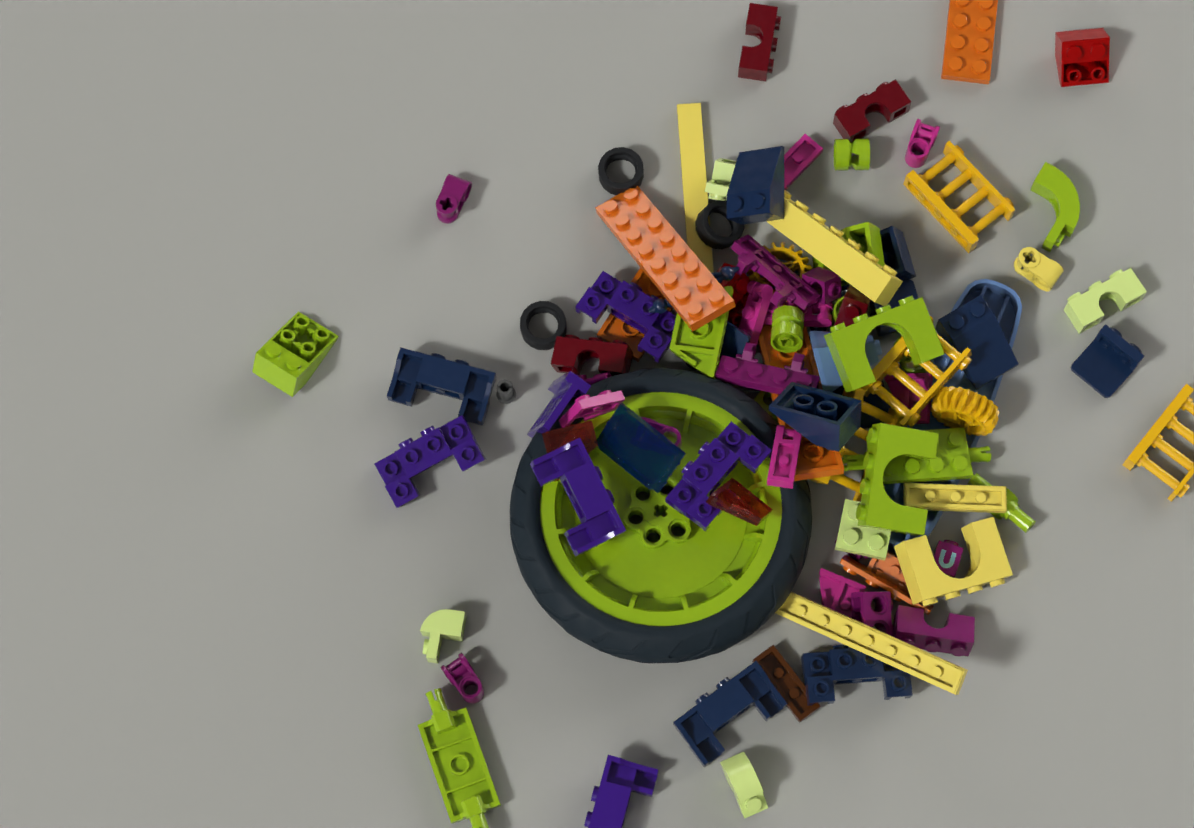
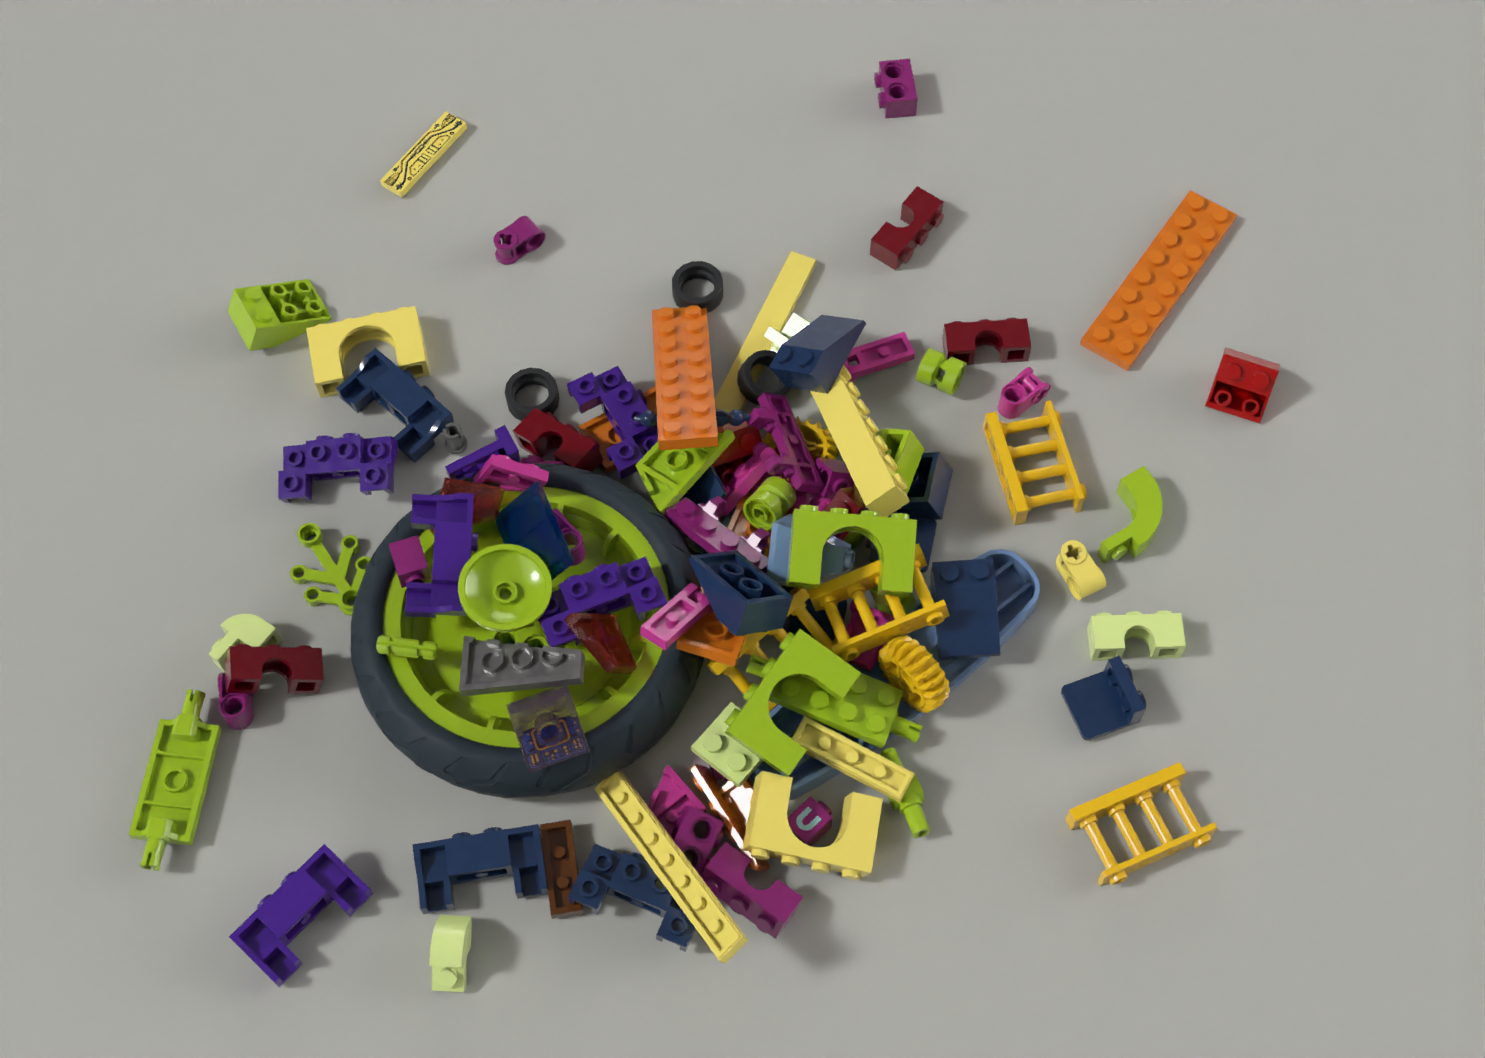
camera: 25 degrees right, 10 degrees down
(325, 156) = (423, 154): none -> light yellow tile
(402, 320) = (333, 342): none -> light yellow arch
(476, 545) = (334, 573): none -> lime plant
(500, 631) = (298, 665): none -> dark red arch
(556, 513) = (409, 561): none -> magenta brick
(592, 579) = (407, 647): none -> lime axle
(649, 483) = (500, 571): none -> lime dish
(681, 557) = (504, 667): none -> flat silver wing
(736, 587) = (547, 728): none -> slope

